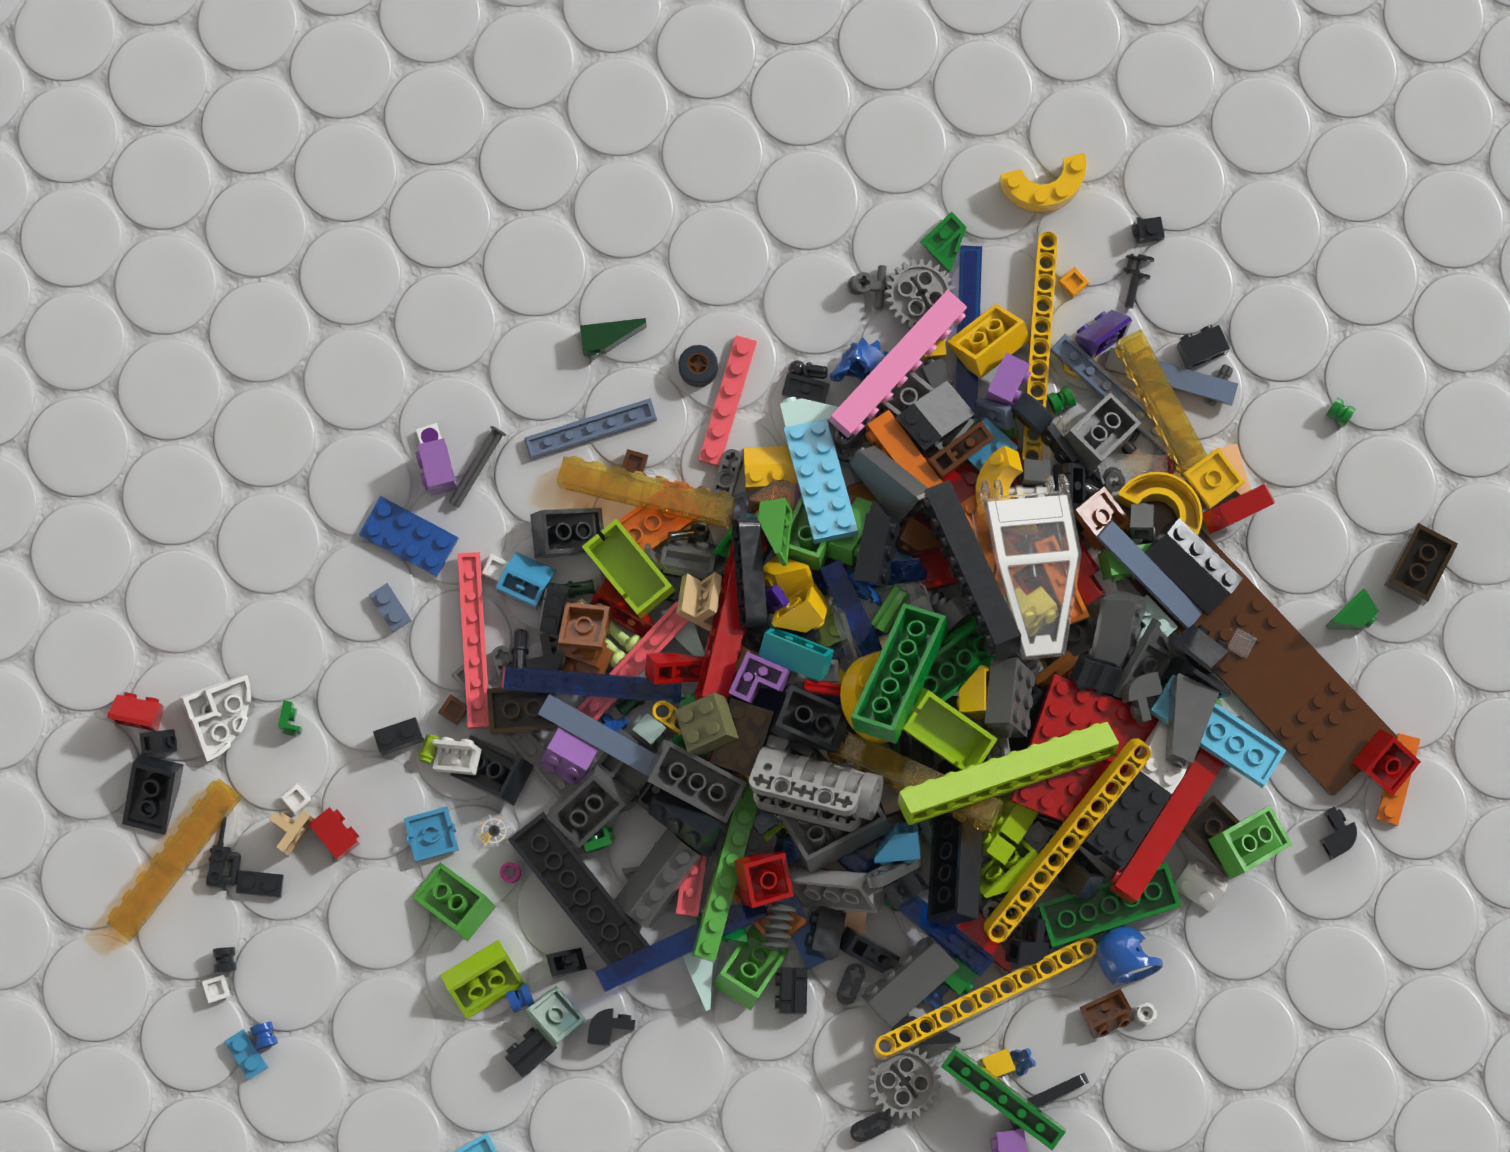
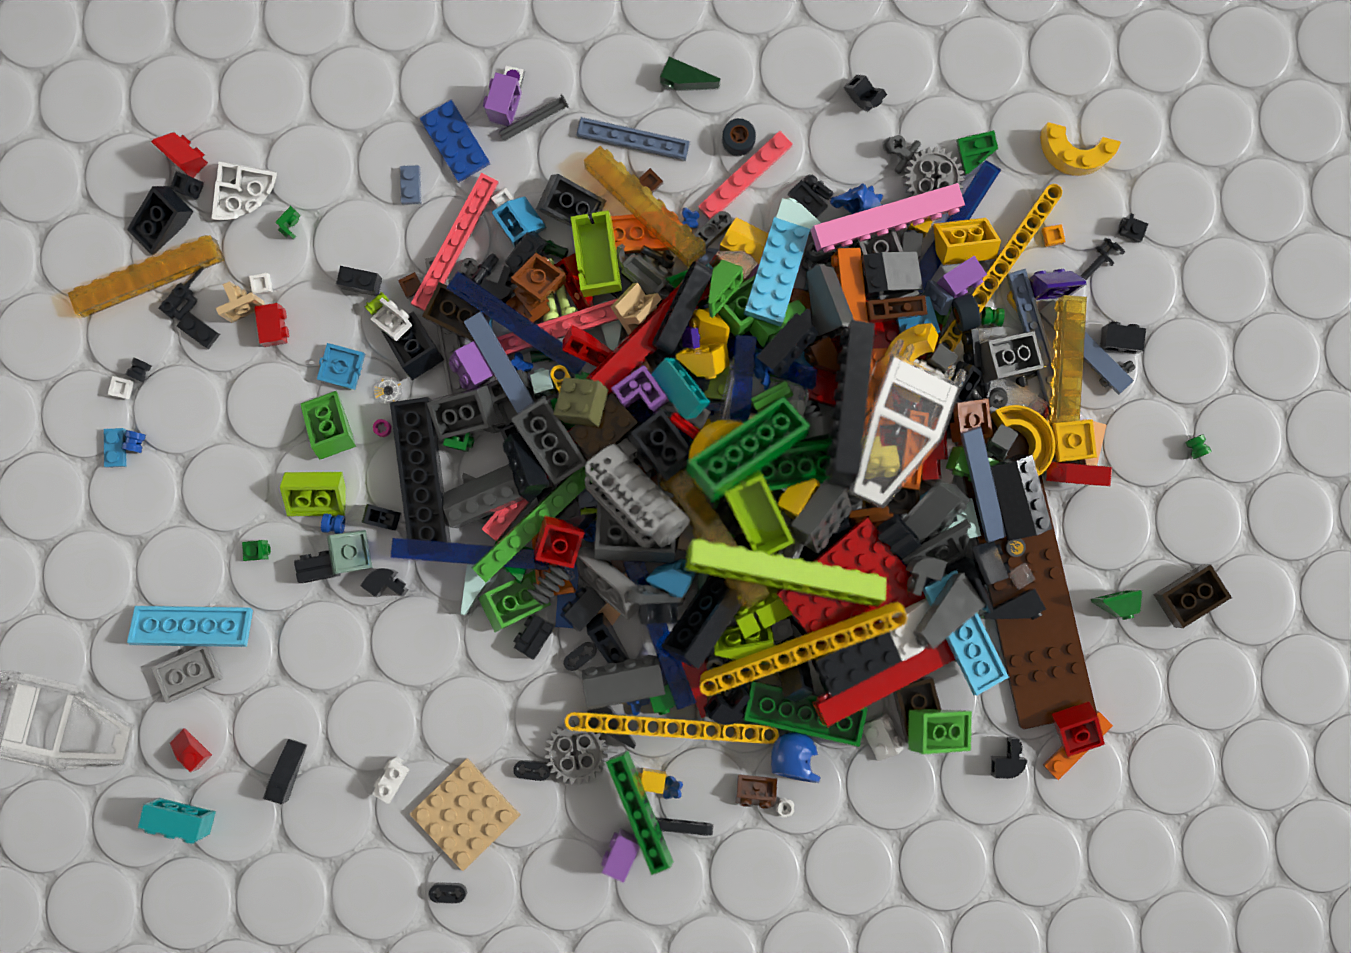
camera: 30 degrees right, 5 degrees up
(456, 1072) = (256, 550): none -> green bracket
(697, 476) = (690, 218): none -> blue piece
(799, 249) = (863, 92): none -> black brick
(1218, 618) = (1015, 547): none -> dark grey tile
(1258, 675) = (1021, 606): none -> black slope

